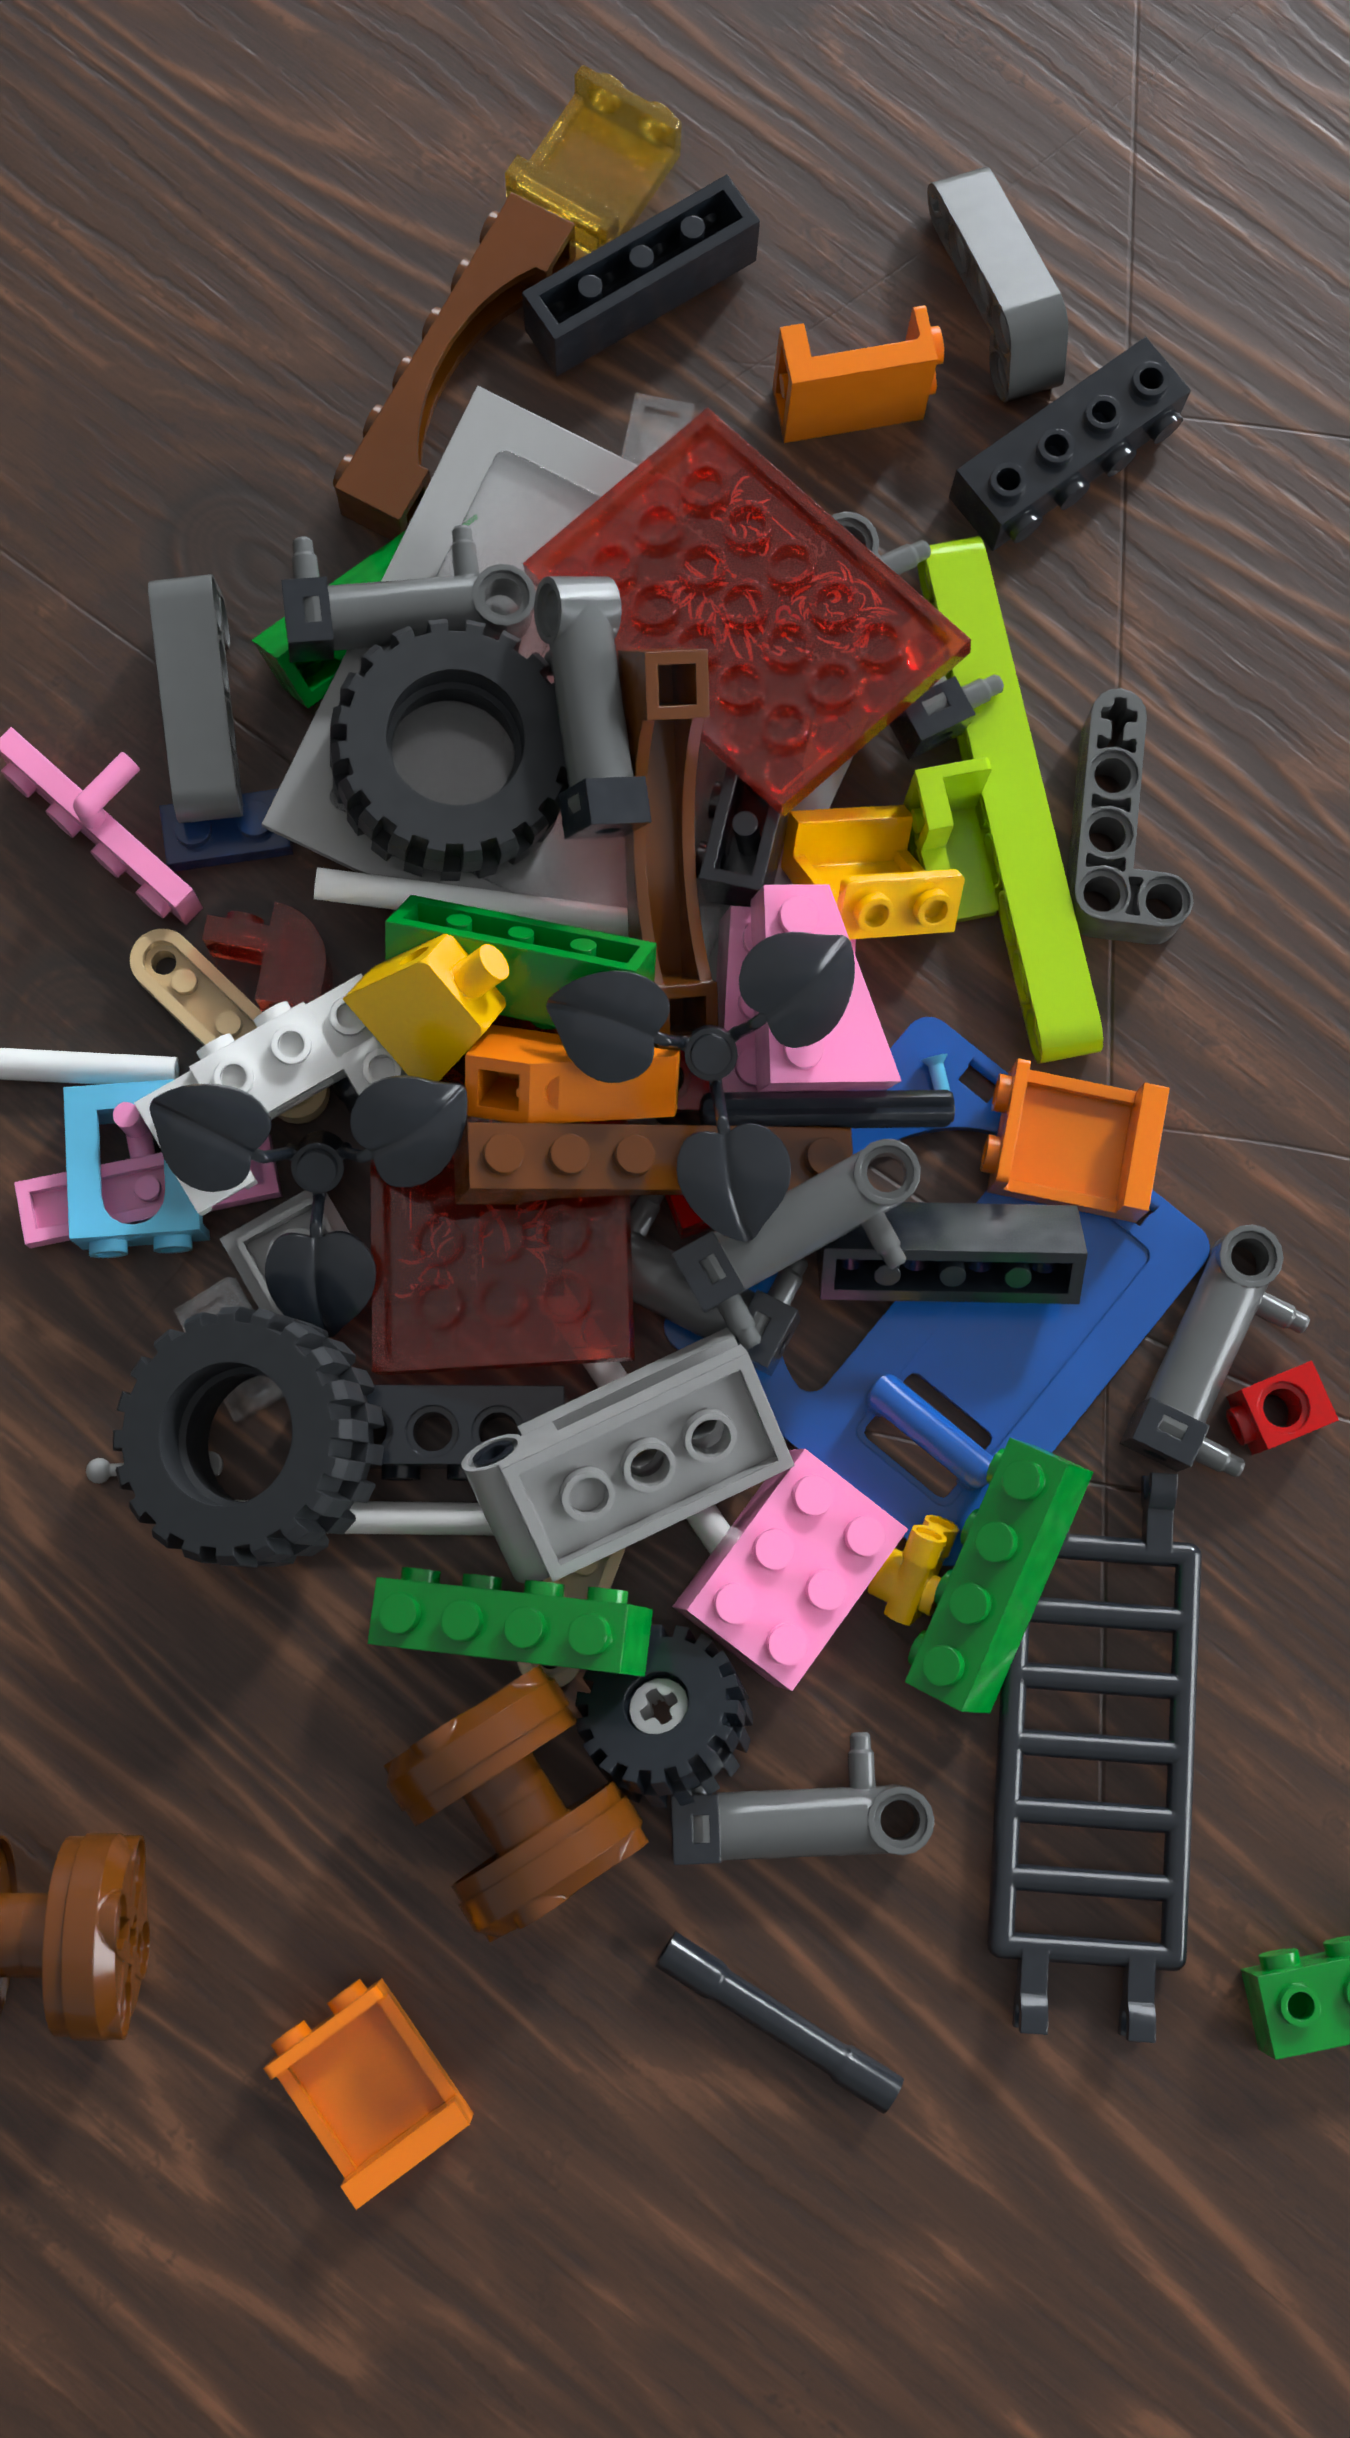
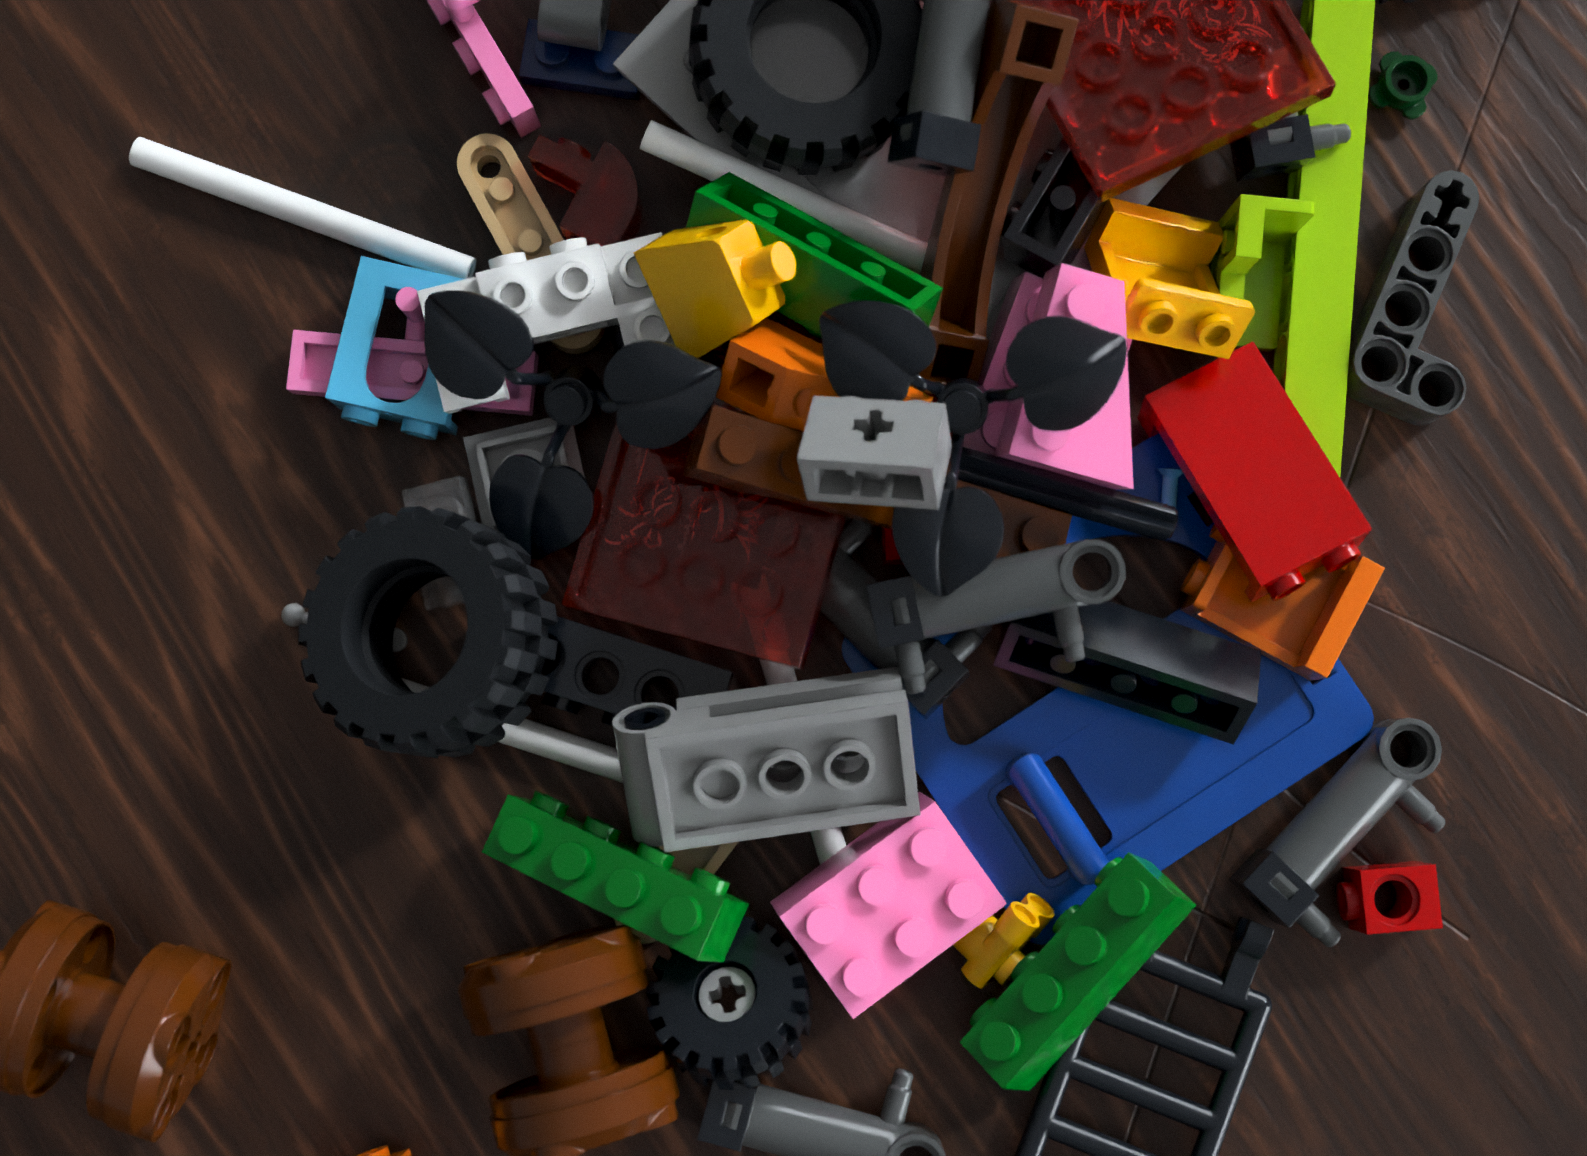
camera: 25 degrees right, 5 degrees up
(641, 1117) = (875, 452): none -> light grey brick
(1017, 1033) = (1257, 472): none -> red panel
(1039, 604) = (1408, 68): none -> dark green plate

